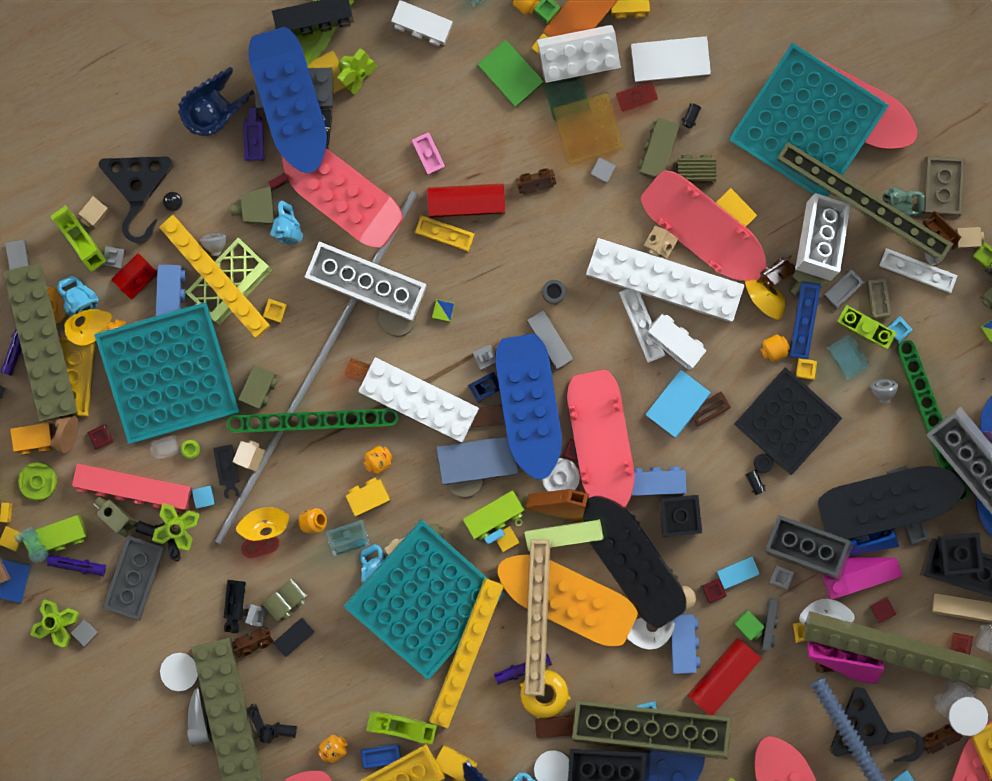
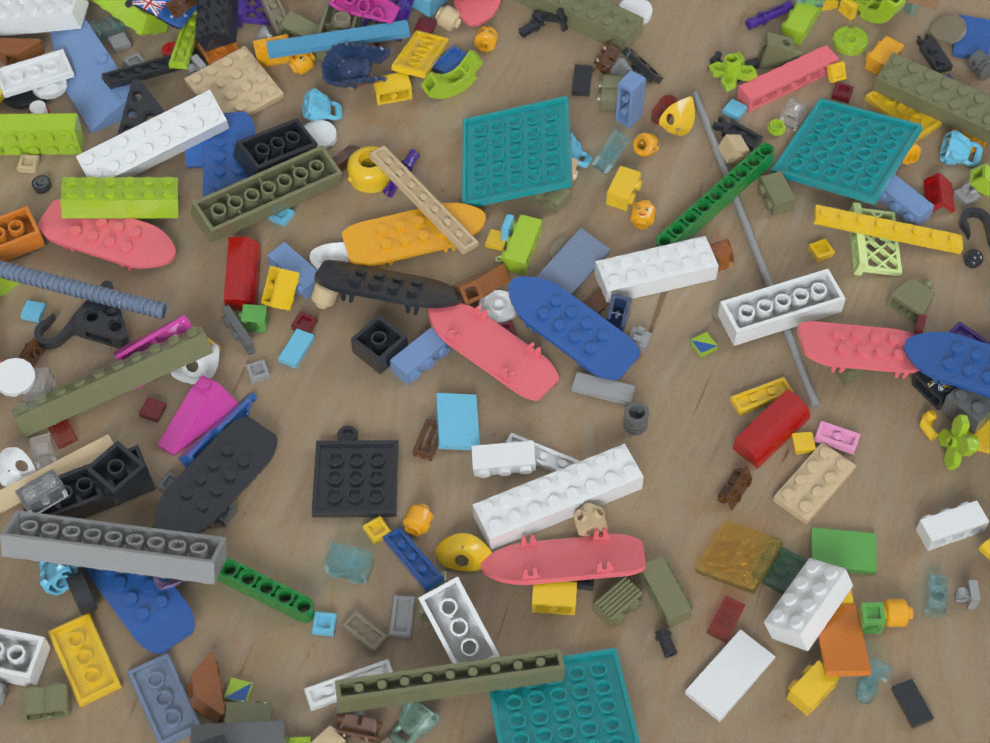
camera: 140 degrees right, 30 degrees down
(65, 434) = (866, 69): medium nougat tile -> none
(88, 456) = (836, 71): none -> yellow tile
(95, 322) = (931, 126): yellow piece -> none
(133, 577) = (724, 32): dark grey plate -> none
(213, 243) = (914, 253): light grey brick -> none
(285, 226) = (878, 300): medium azure piece -> none
(288, 568) = (630, 99): none -> medium blue brick
(355, 108) = (926, 424): none -> yellow arm
(454, 172) = (803, 442): none -> yellow tile
(466, 653) = (453, 152): yellow plate -> none
(477, 137) = (814, 483): none -> tan plate
(567, 534) = (455, 268): yellowish green tile -> none
(603, 170) = (692, 541): light grey tile -> none
(713, 629) = (280, 288): none -> yellow brick
(755, 482) = (340, 416): black pin -> none
(782, 267) = (474, 566): reddish brown hinge -> none
(809, 547) = (253, 393): dark grey brick -> none
(866, 327) = (354, 595): lime slope -> none
(884, 390) = (295, 563): light grey brick -> none

